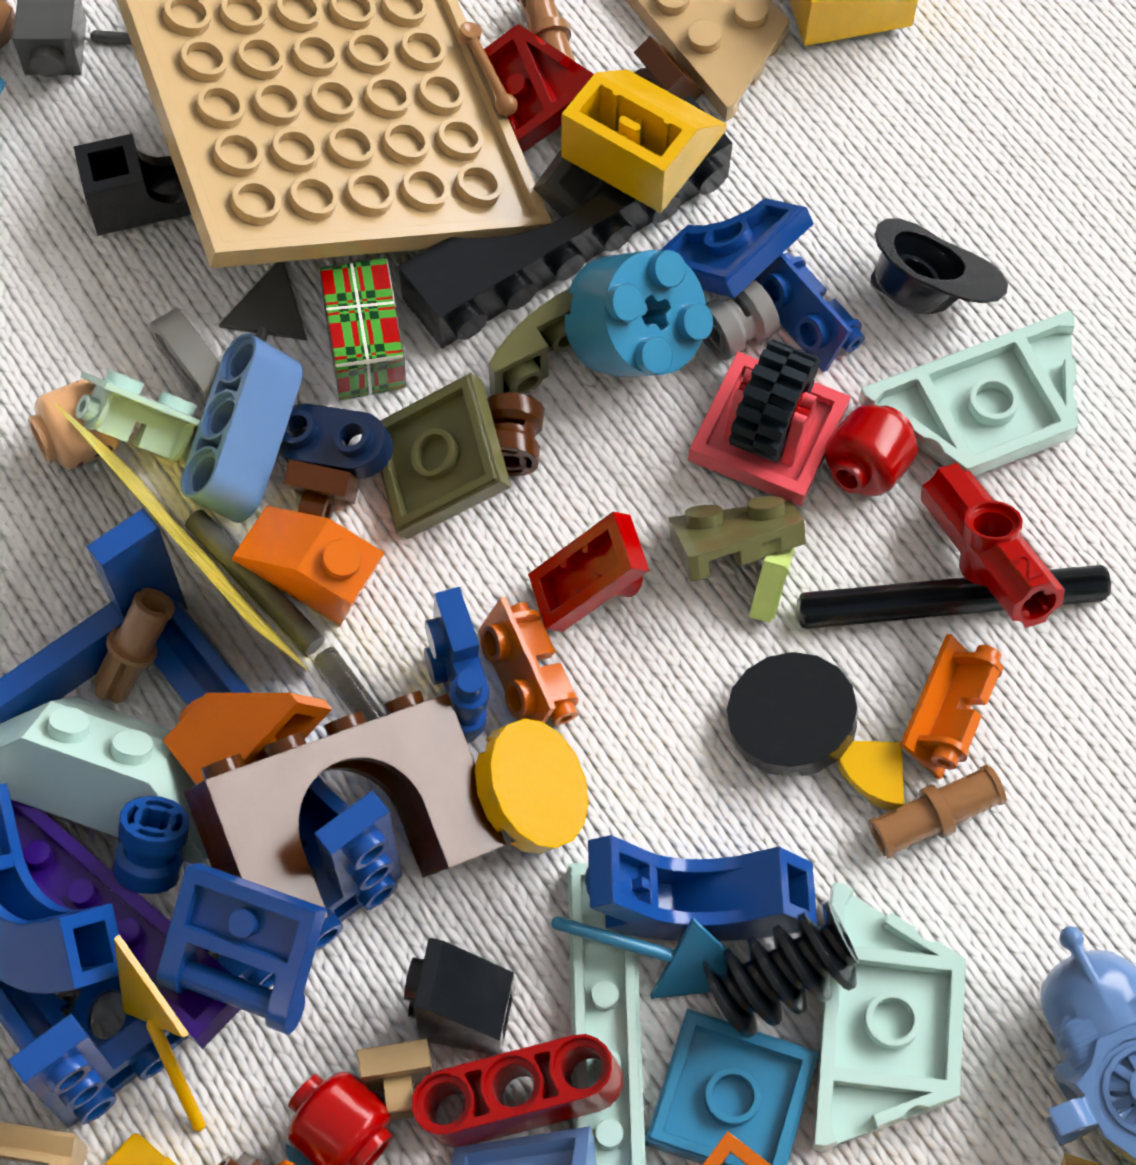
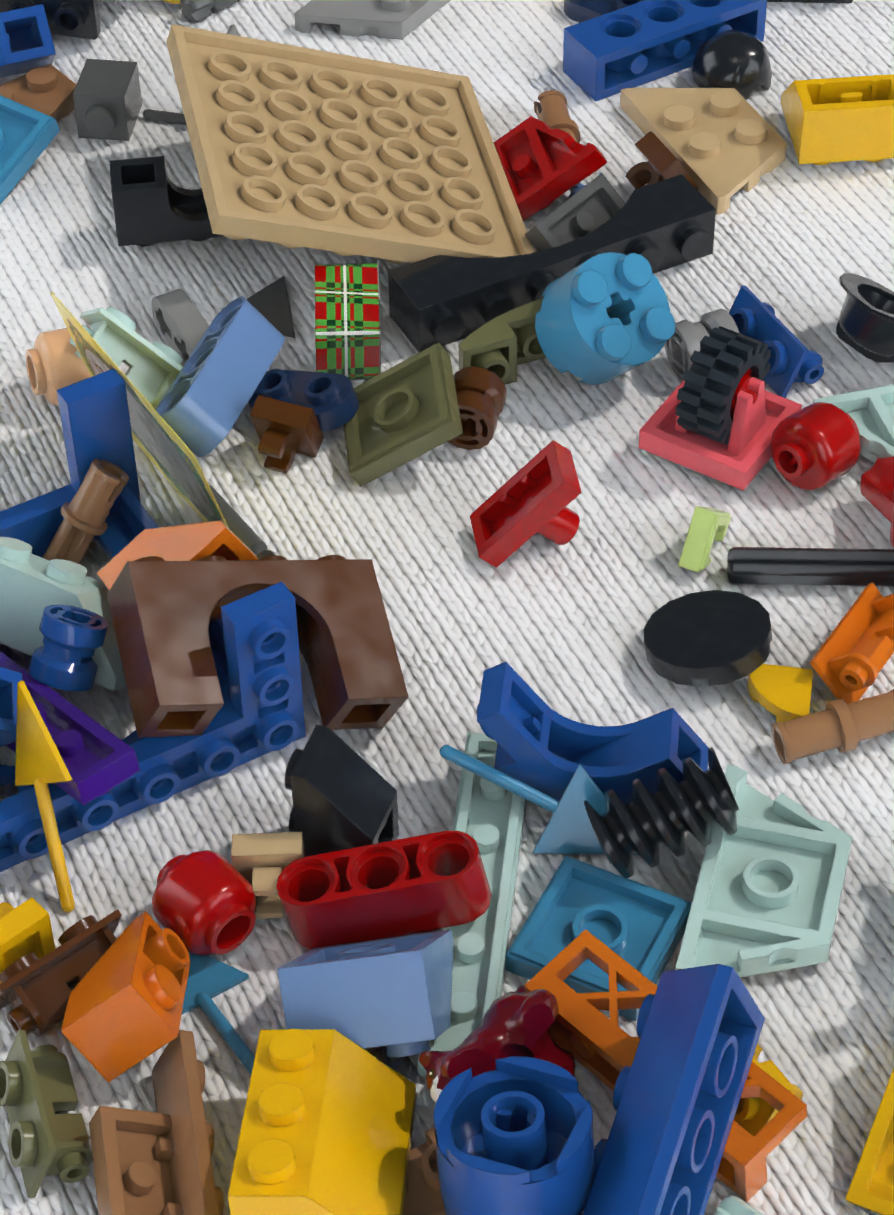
camera: 10 degrees right, 20 degrees down
(247, 926) = (143, 680): blue plate -> none
(309, 559) = (269, 480): orange slope -> none
(456, 662) = (385, 528): blue plate -> none
(469, 35) = (509, 173): medium nougat hinge -> none
(514, 643) = (454, 581): orange hinge -> none
(532, 786) = (440, 655): yellow tile -> none
(637, 136) = (621, 186): yellow slope -> none
(737, 250) = (711, 284): blue tile -> none
(748, 532) = (650, 491): olive wing -> none

